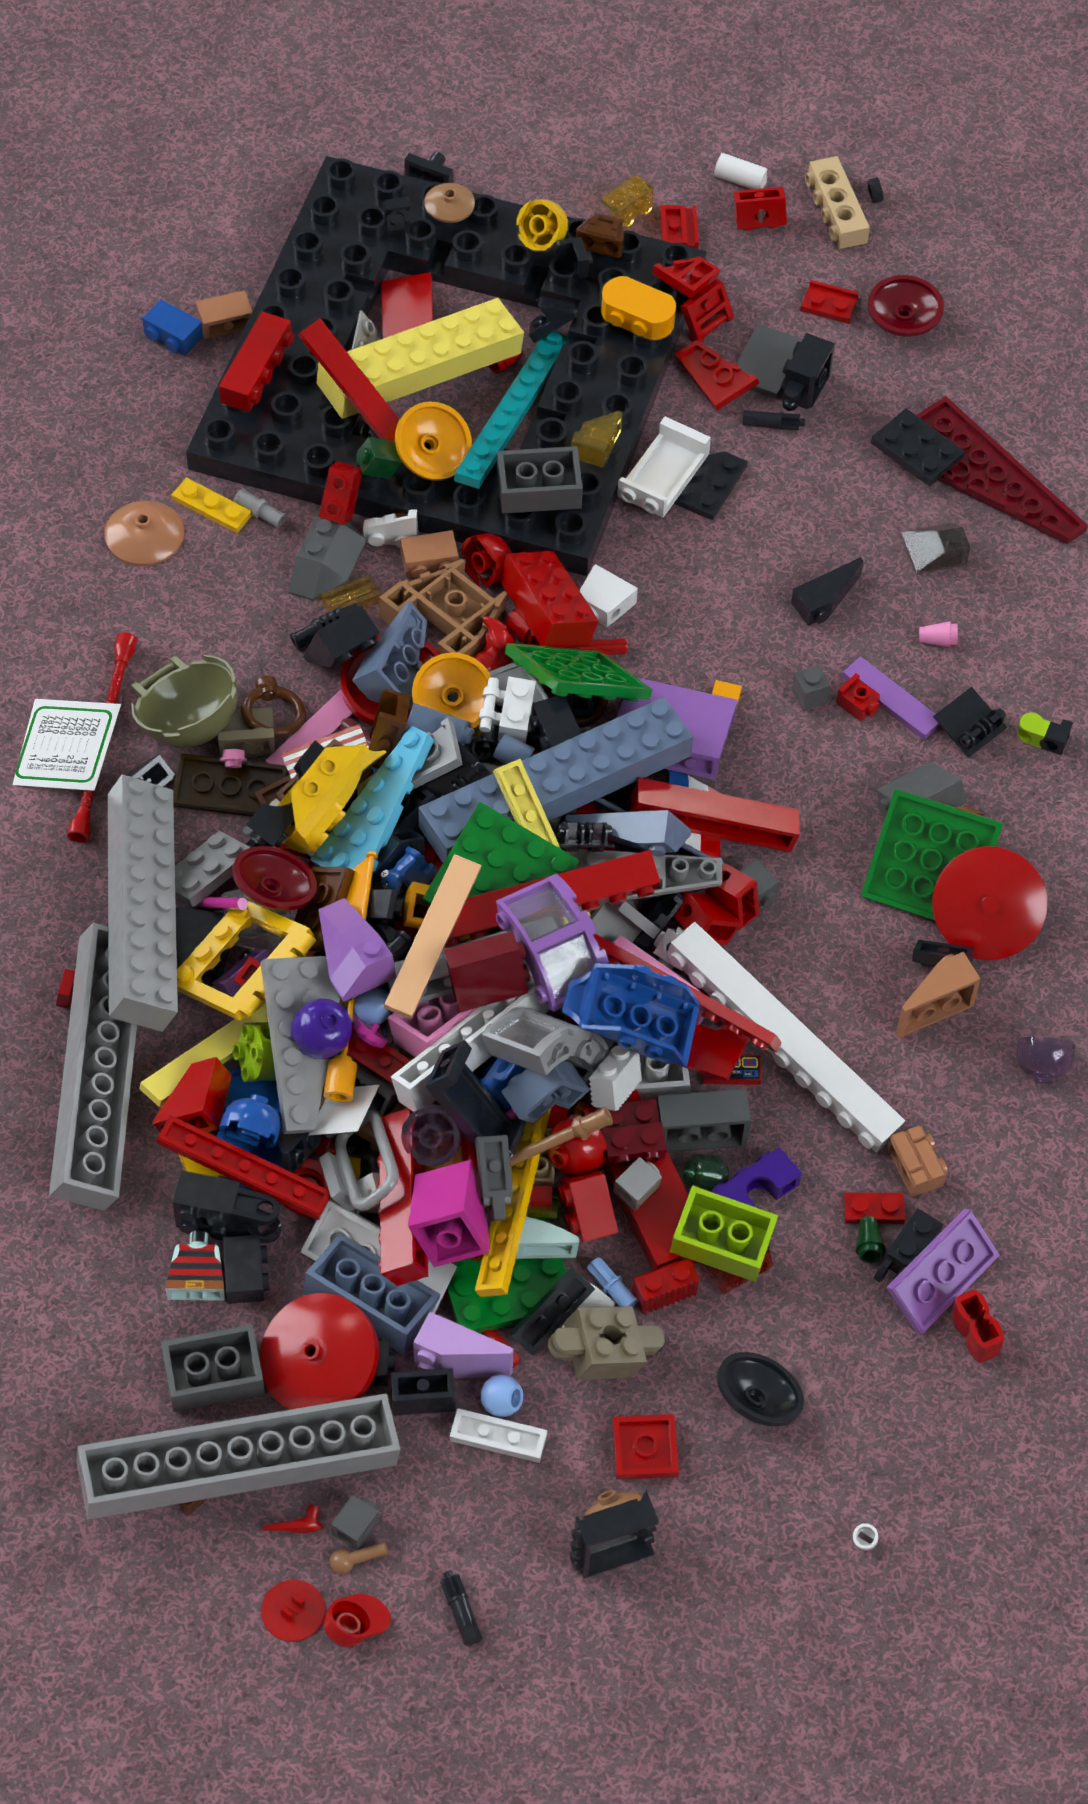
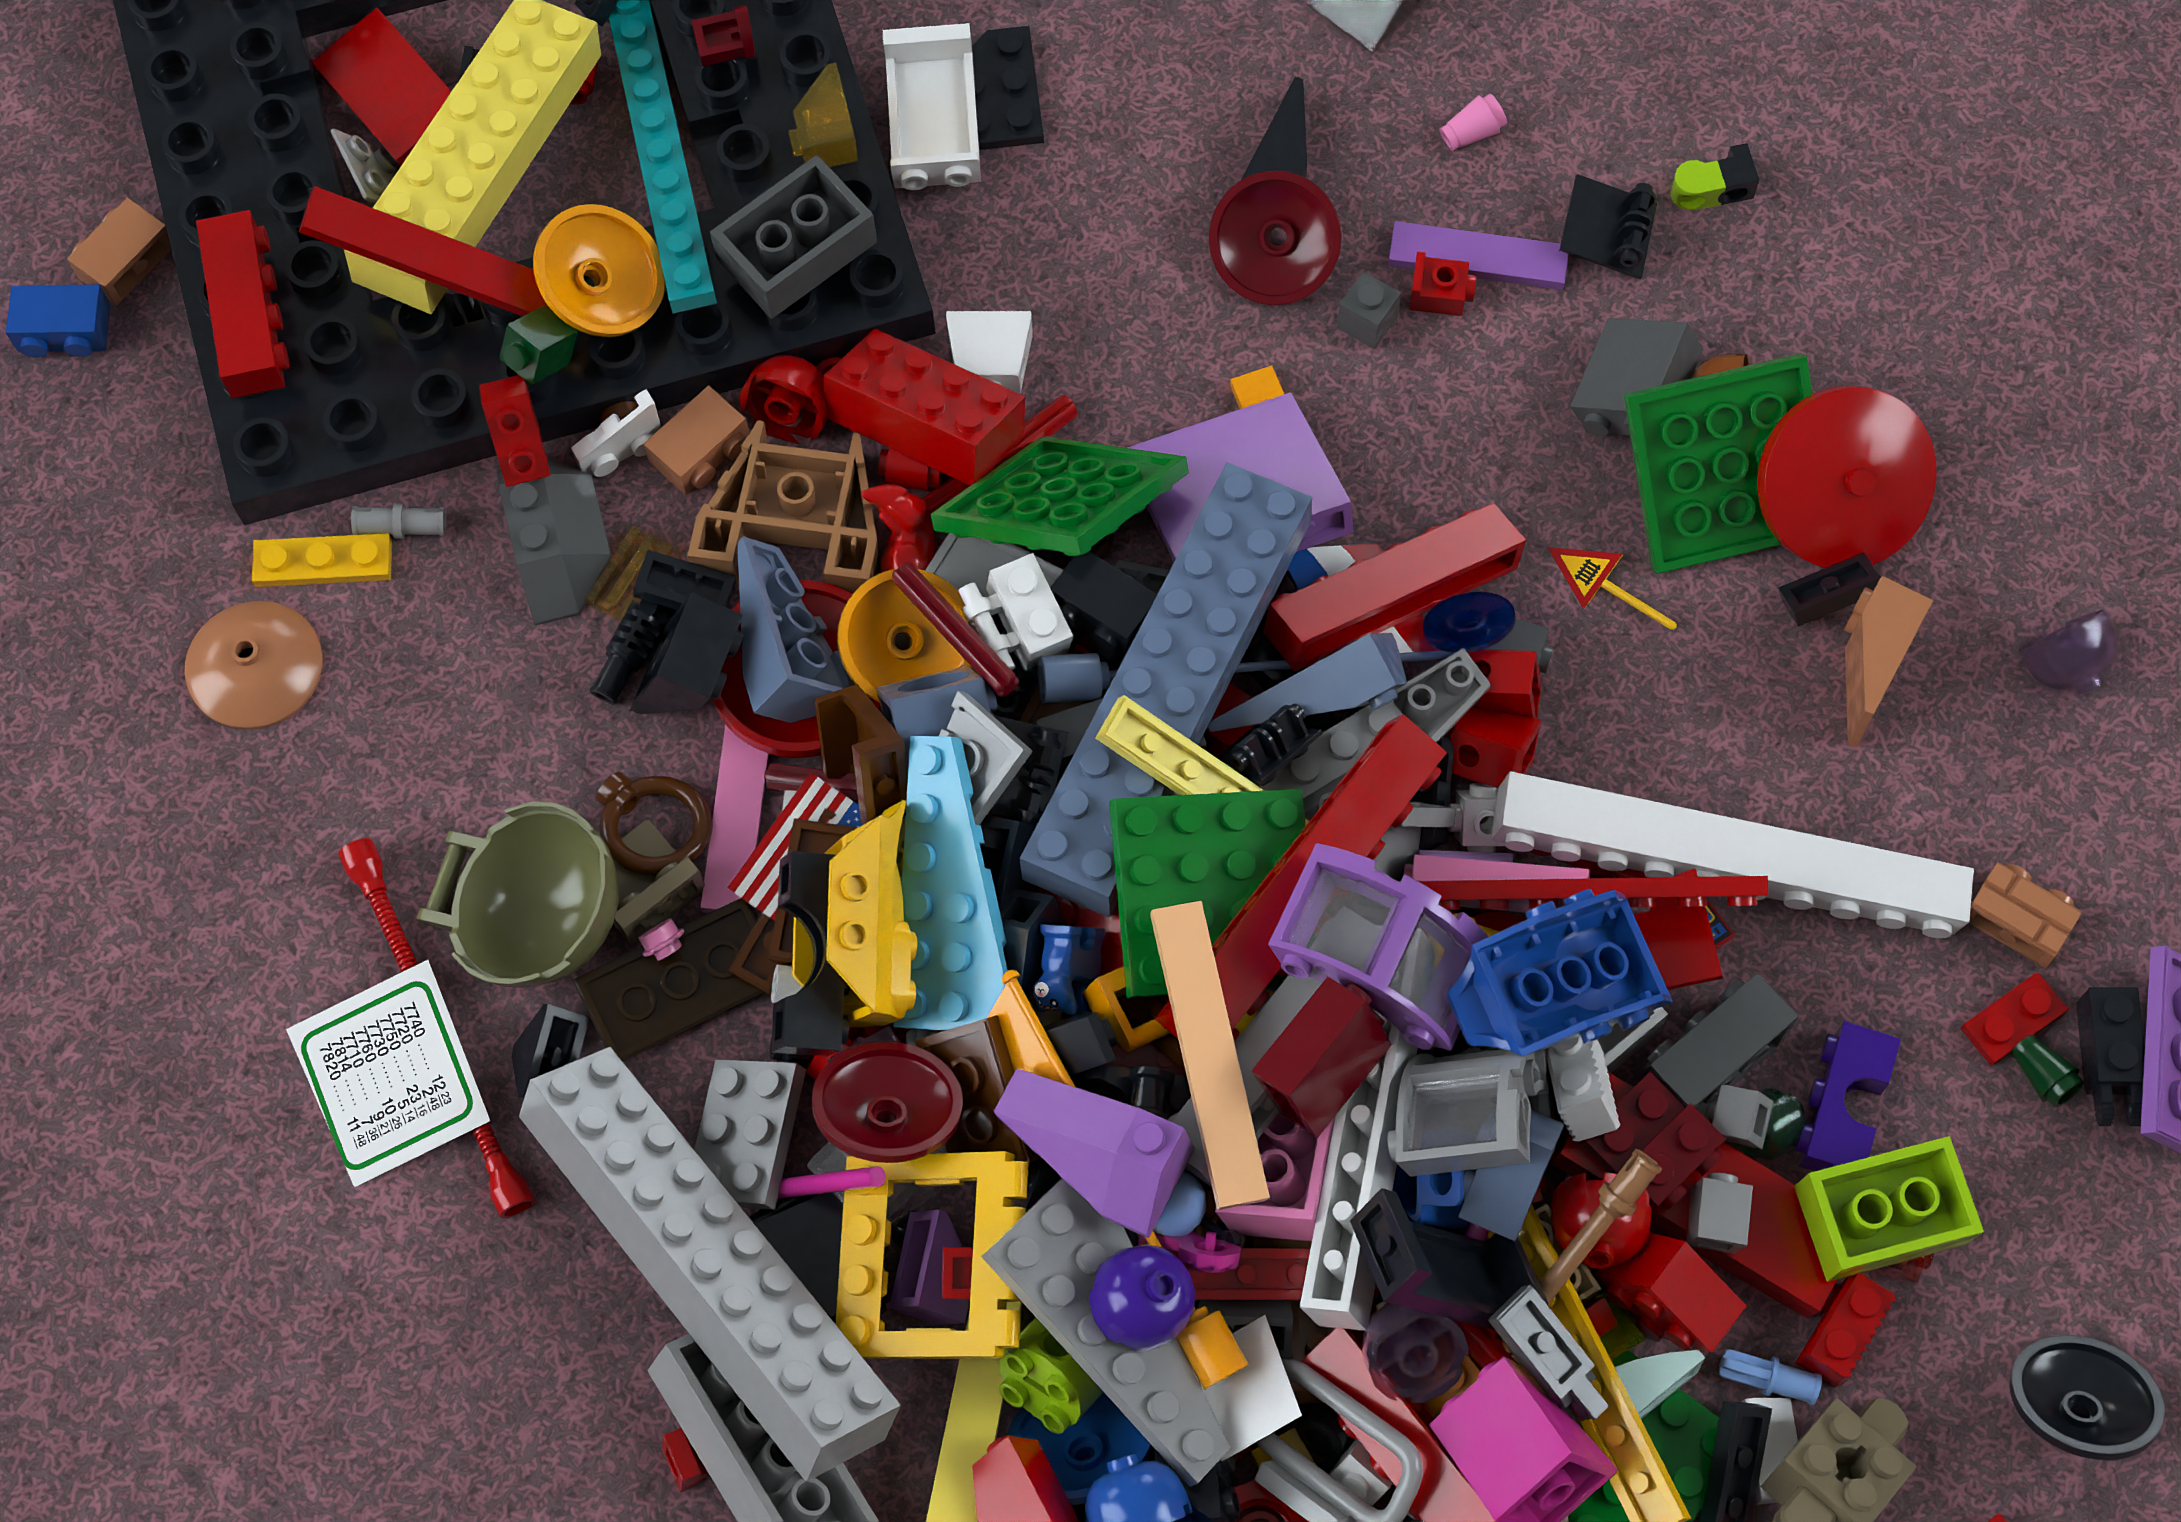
camera: 30 degrees left, 10 degrees up
(372, 606) = (671, 580): none -> black tile
(473, 695) = (955, 629): none -> dark red axle
(582, 374) = (724, 36): none -> dark red tile
(687, 1151) = (1741, 1115): none -> light grey plate
(738, 853) = (1469, 622): none -> clear blue dish
(778, 614) = (1243, 241): none -> dark red dish
(826, 875) = (1589, 571): none -> piece

